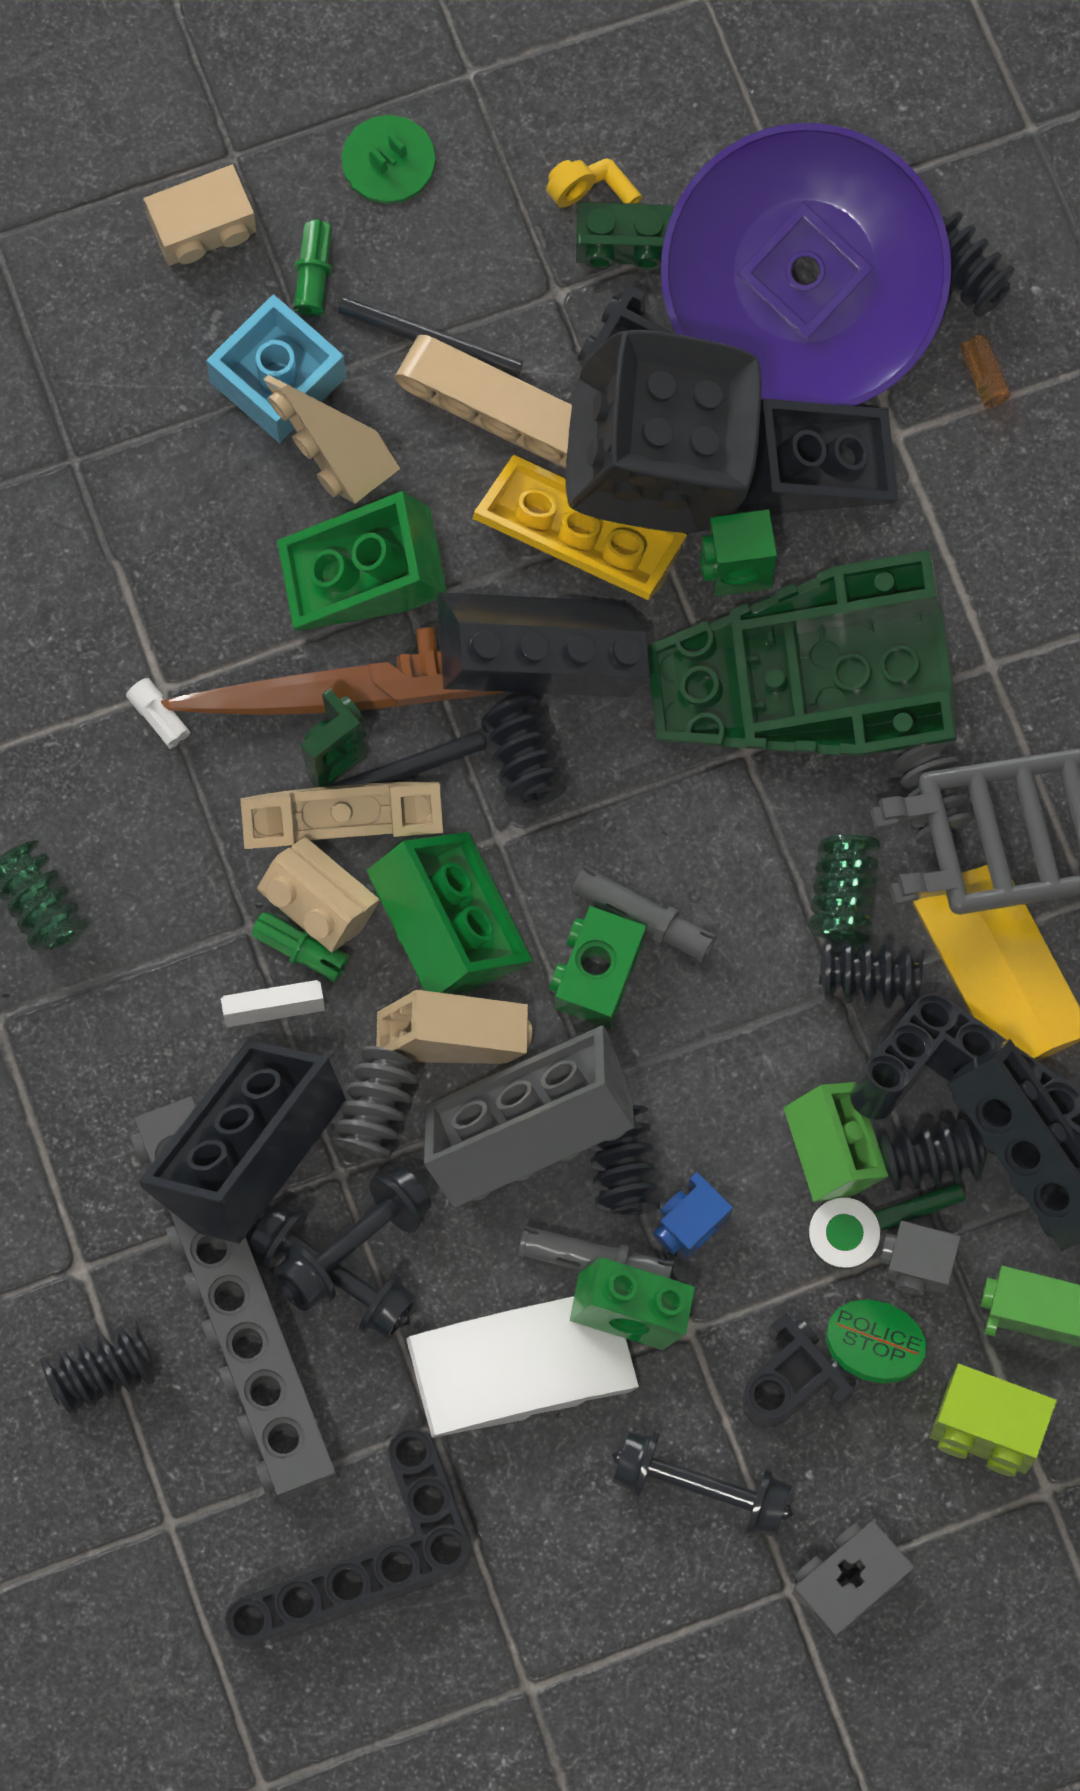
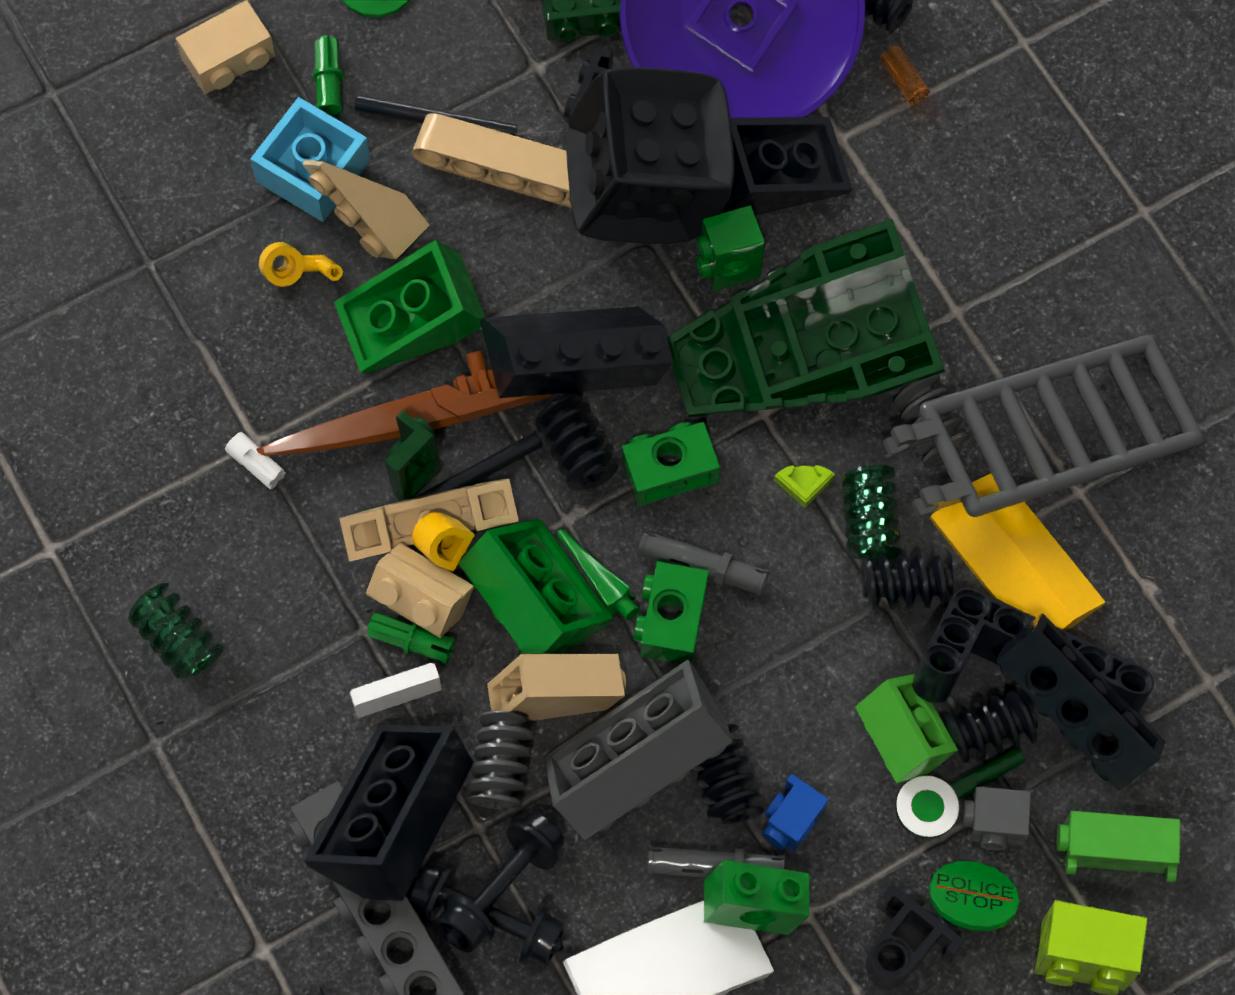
camera: 10 degrees left, 5 degrees down
(239, 490) = (294, 265): none -> yellow plate
(352, 840) = (442, 539): none -> yellow plate
(534, 928) = (611, 589): none -> green piece
(535, 510) = (553, 243): yellow slope -> none
(606, 812) = (654, 481): none -> green brick
(777, 838) = (804, 482): none -> lime tile

